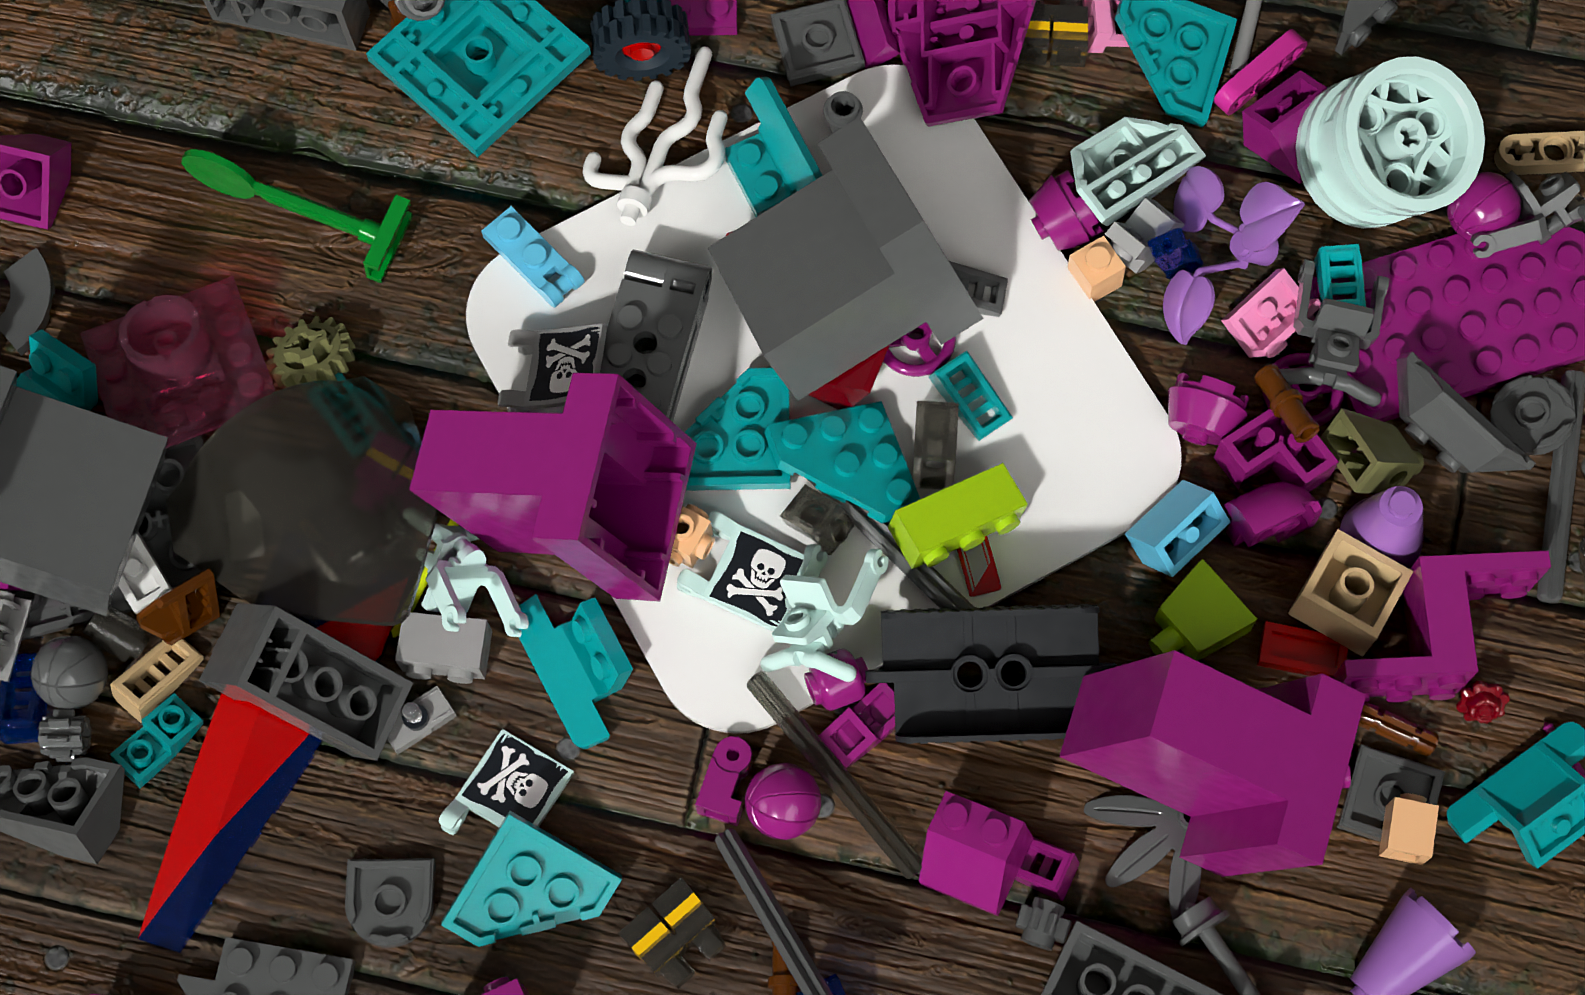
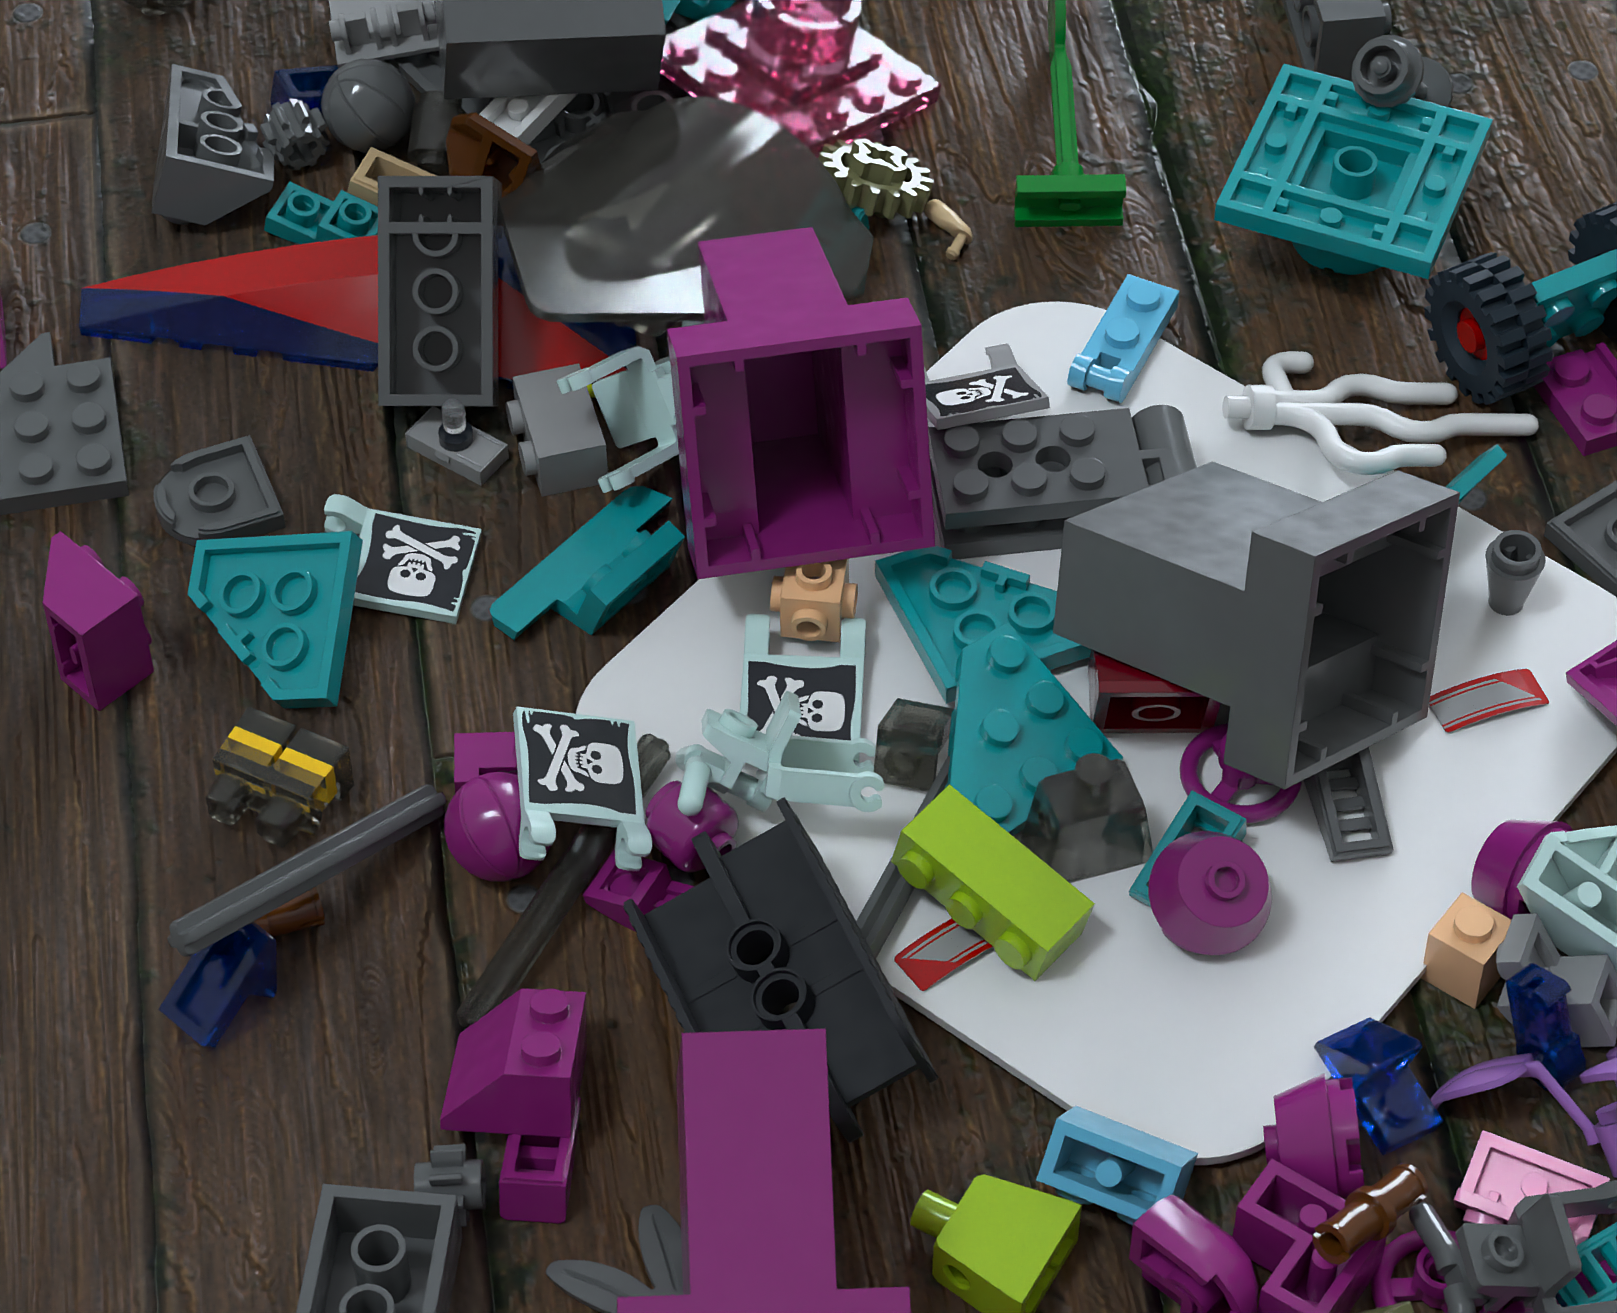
camera: 65 degrees right, 20 degrees down
(362, 322) = (949, 221): none -> tan piece
(780, 737) = (579, 773): none -> flag
(916, 172) = (1486, 698): none -> sticker
(1015, 393) = (1210, 893): none -> magenta cone
(1162, 357) = (1385, 1089): none -> clear blue slope

